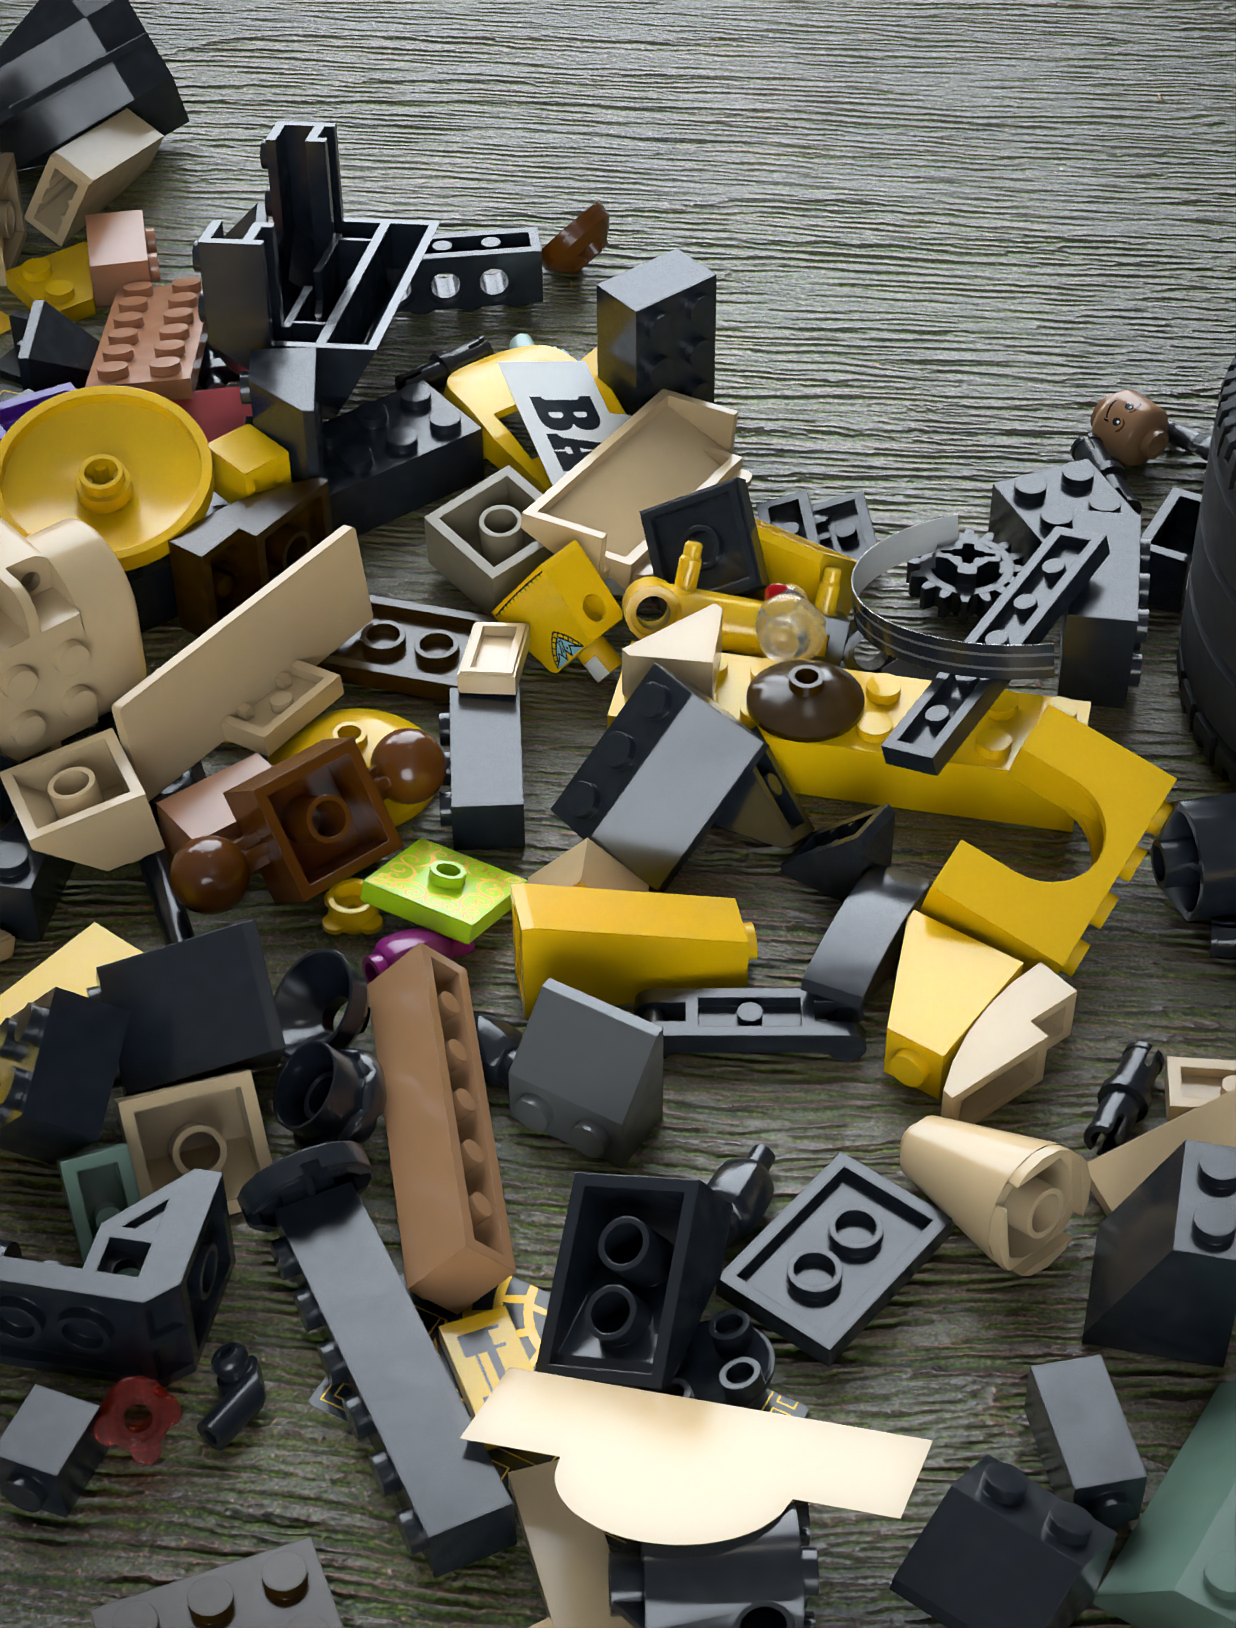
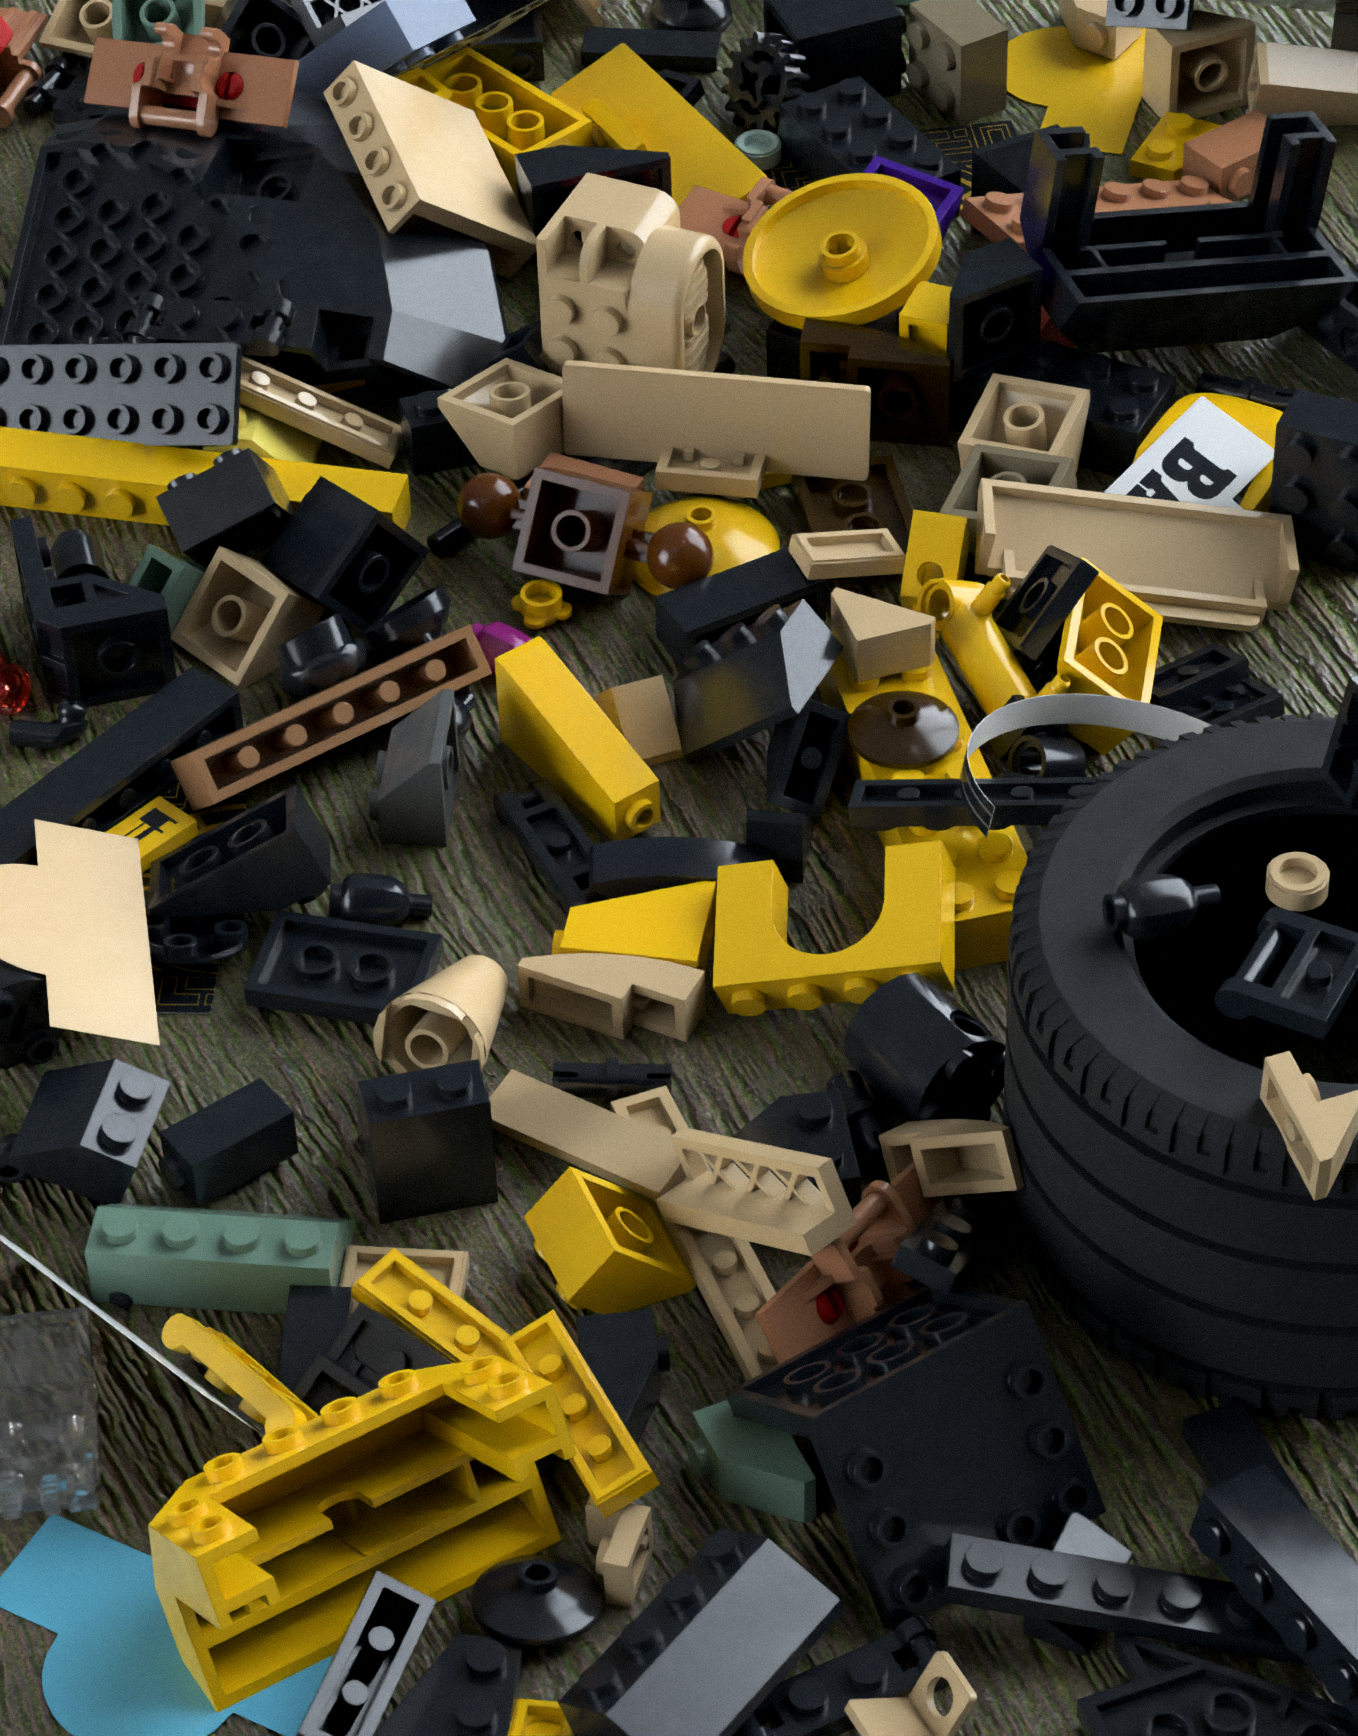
camera: 65 degrees right, 0 degrees up
(300, 1177) = (228, 667): black tile -> none
(403, 485) = (1028, 418): none -> tan slope
(441, 890) = (585, 632): lime plate -> none
(789, 624) = (980, 679): clear animal -> none

